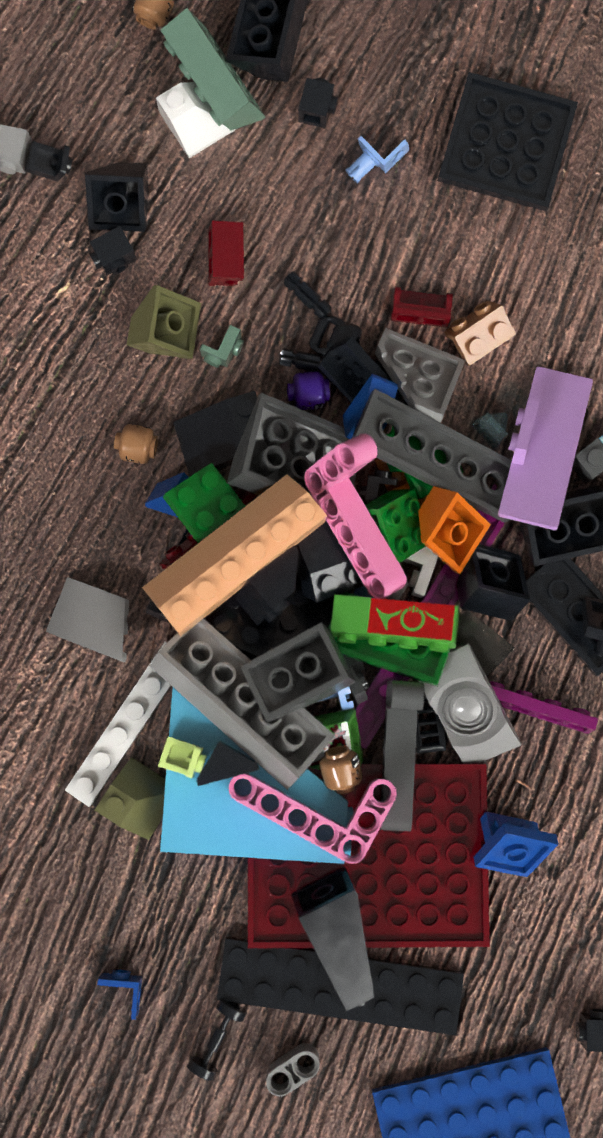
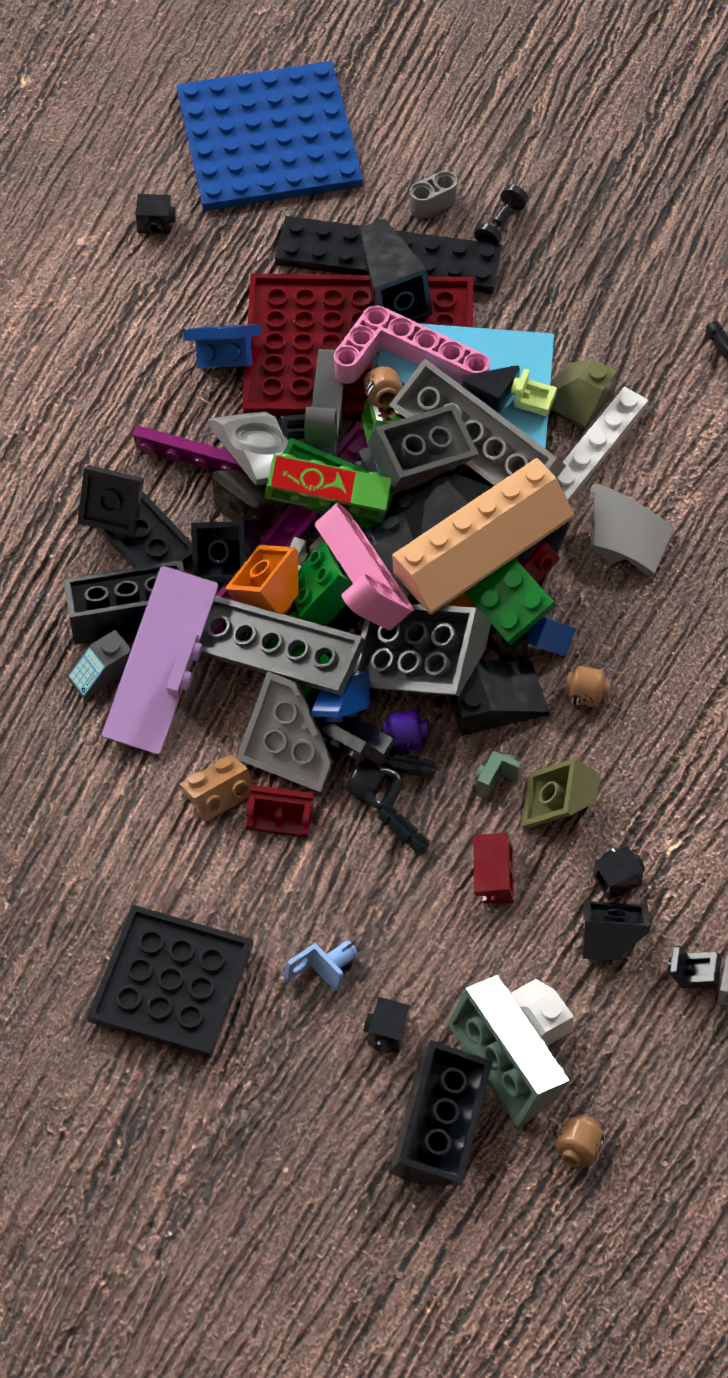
camera: 175 degrees left, 25 degrees down
(122, 978) = (589, 257): blue bracket -> none
(492, 427) = (214, 693): clear light blue tile -> none

